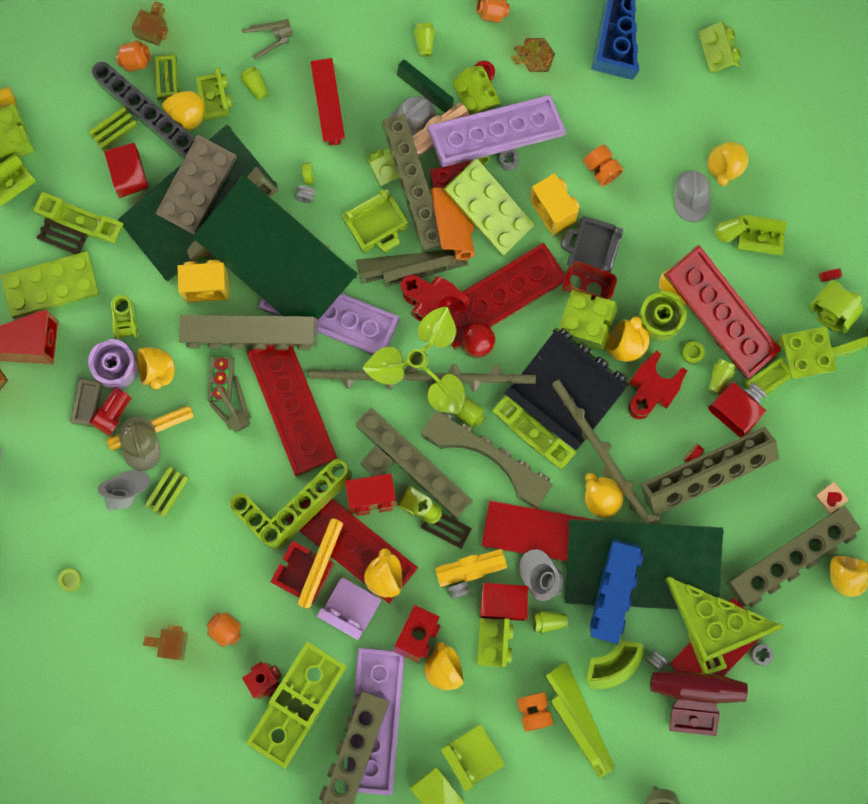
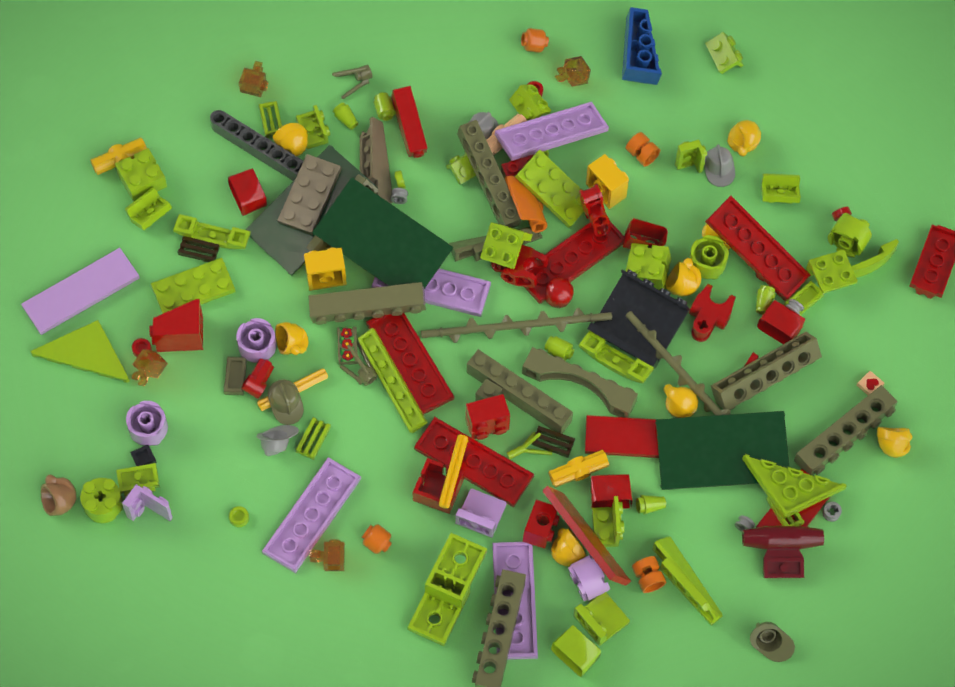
camera: 10 degrees left, 15 degrees down
(109, 121) = (222, 163): lime tile -> none
(124, 322) = (260, 307): lime piece -> none
(133, 56) = (242, 105): orange head -> none
(153, 587) = (311, 515): none -> lavender tile
(255, 680) = (415, 574): red brick -> none
(267, 430) = (392, 380): none -> lime tile
(281, 146) = (375, 159): none -> dark tan wedge
(294, 507) = (423, 436): lime beam -> none
(301, 76) = (384, 106): none -> lime brick
(376, 222) = (461, 212): lime piece -> none
(384, 575) = (507, 478): yellow piece -> none
(410, 533) = (522, 449): none -> lime plant
(419, 276) = (503, 244): none -> lime bracket
(420, 506) = (528, 423): lime piece -> none
(424, 38) = (482, 69): lime cone -> none
(425, 86) = (487, 104): dark green tile -> none
(436, 329) = (523, 282): lime plant -> none
(459, 590) = (571, 487): light grey bush -> none
(463, 709) = (589, 578): none -> lavender brick
(466, 661) = (586, 536): none -> red tile
(509, 166) = (564, 159): light grey bush -> none
(532, 240) = (594, 209): none -> red piece
(540, 575) = (639, 466): light grey piece -> none
(595, 243) = (643, 206): dark grey piece -> none
(614, 591) = (702, 469): blue wedge -> none
(616, 666) = (711, 530): lime brick -> none
(660, 179) = (691, 154): none -> lime bracket
(693, 352) = (738, 285): lime tile -> none
(730, 229) = (755, 186): lime cone -> none

